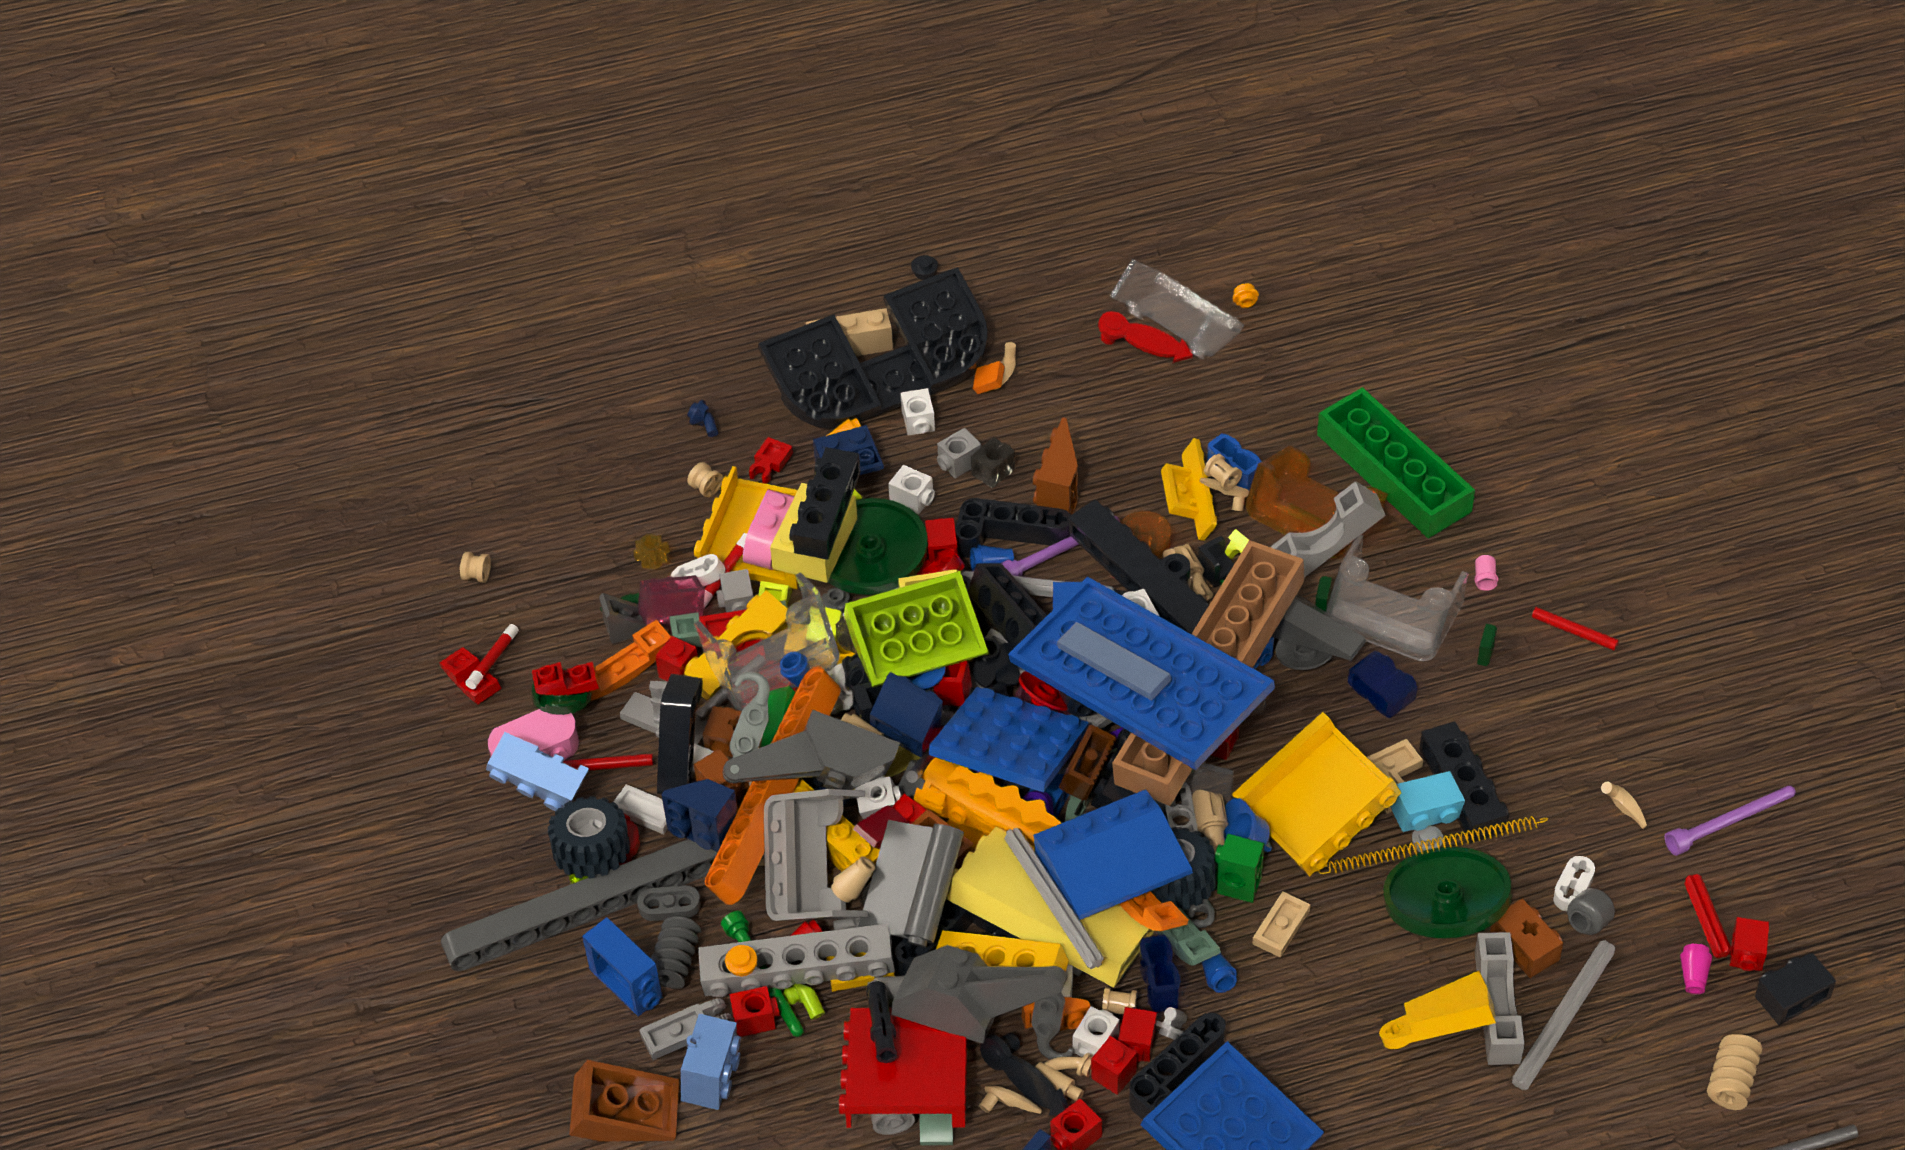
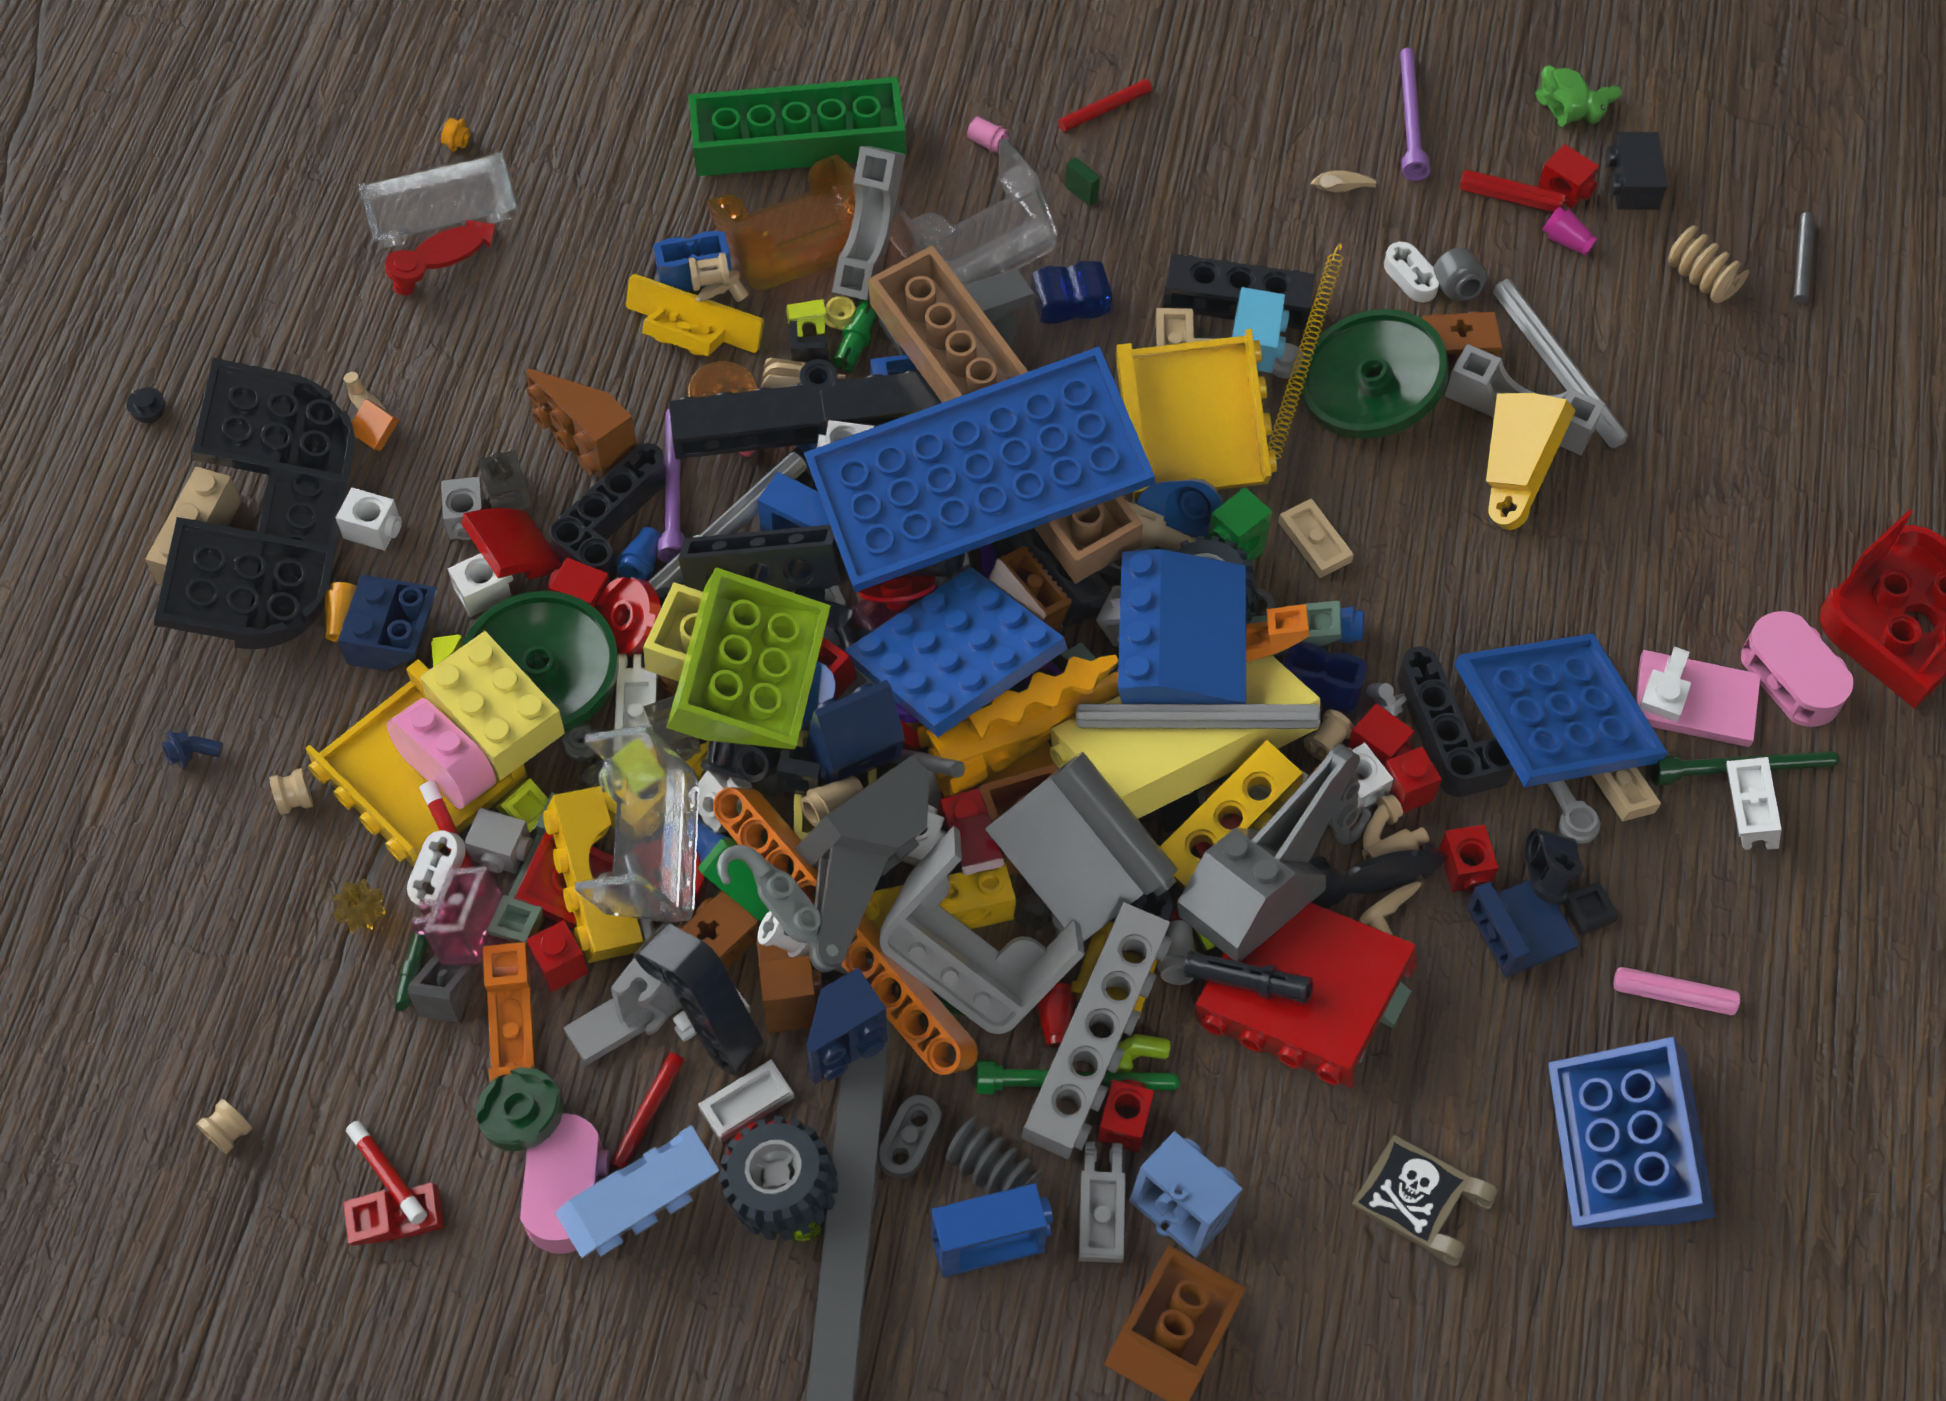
camera: 65 degrees left, 10 degrees up
(556, 681) = (518, 1091): red slope -> none
(741, 960) = (1081, 1085): light orange plate -> none
(770, 456) = (314, 705): red plate -> none
(794, 667) = (696, 820): blue cone -> none
(825, 503) = (454, 615): black brick -> none
(853, 879) = (1025, 913): tan cone -> none
(947, 485) = (510, 542): none -> red slope
(1114, 661) = (955, 482): sand blue tile -> none
(1834, 917) = (1571, 97): none -> bright green animal

